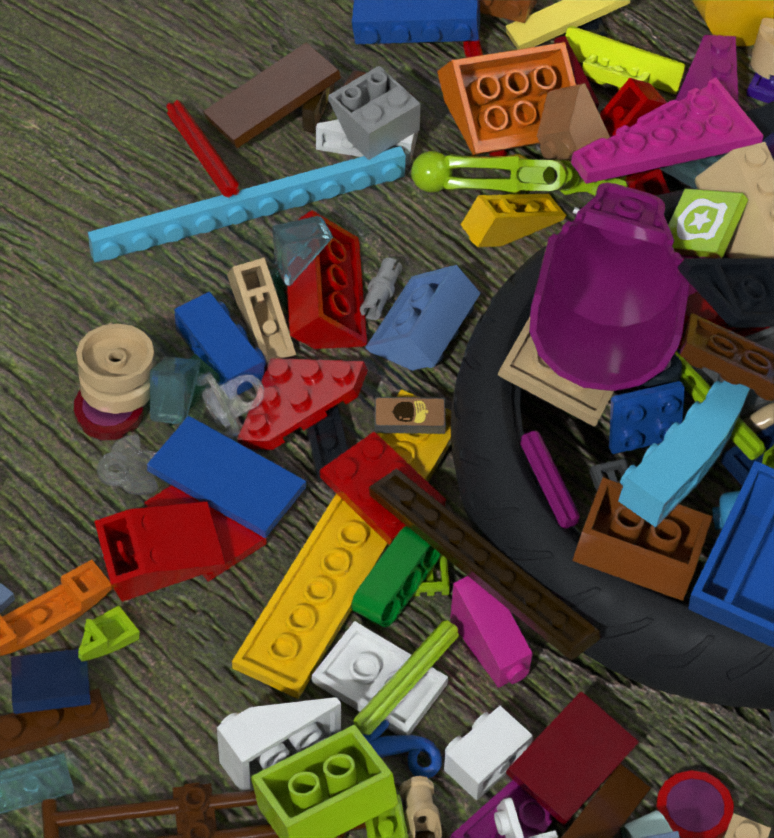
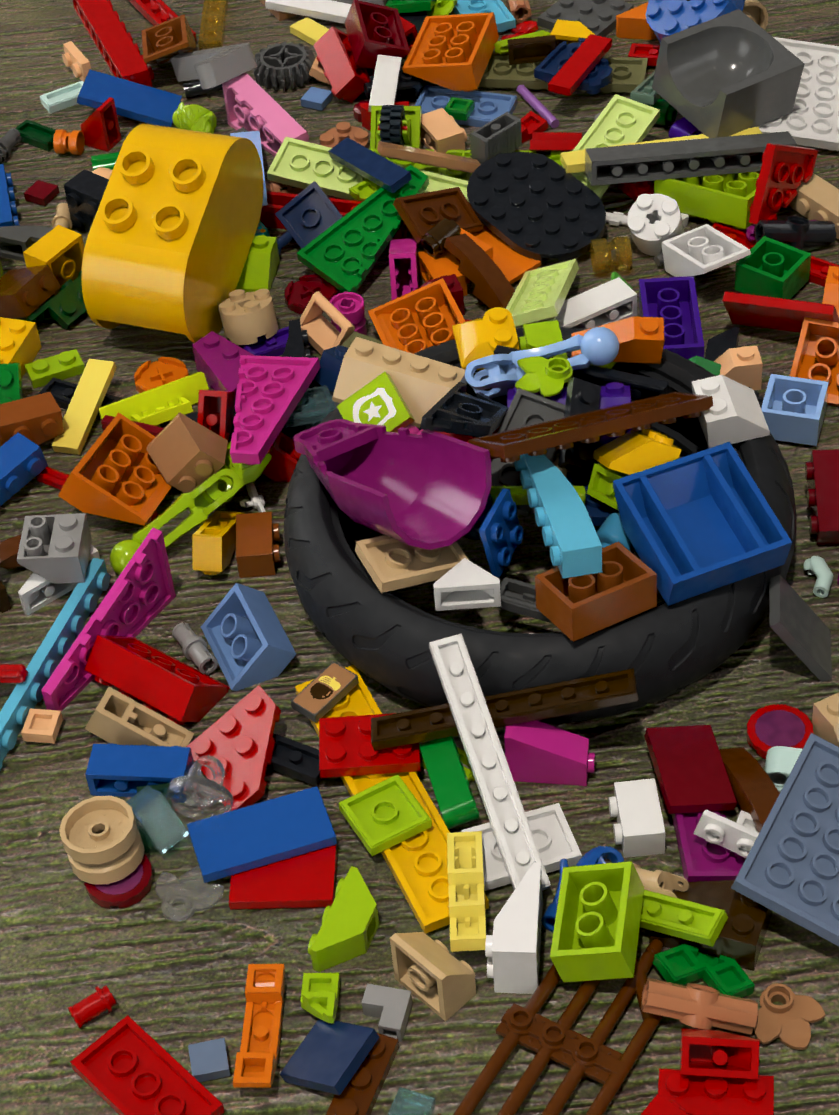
camera: 45 degrees left, 10 degrees down
(136, 697) = (389, 1005): none -> light grey piece
(158, 547) = (283, 912): red slope -> none
(188, 698) = (432, 973): none -> tan slope
(191, 602) = (346, 924): none -> lime slope
(208, 244) = (42, 726): none -> light nougat plate
(288, 667) = (466, 891): none -> light yellow slope
(298, 244) = (120, 661): clear light blue slope -> none
(318, 552) = (385, 815): none -> lime tile
(369, 208) = (126, 610): none -> dark pink wing
(406, 677) = (540, 824): lime axle -> none
(417, 585) = (486, 758): none -> white tile
(524, 242) = (256, 544): none -> dark orange brick
(550, 479) = (493, 617): magenta axle -> none
(565, 434) = (466, 588): none -> white slope
(663, 39) = (158, 373): none -> orange tile

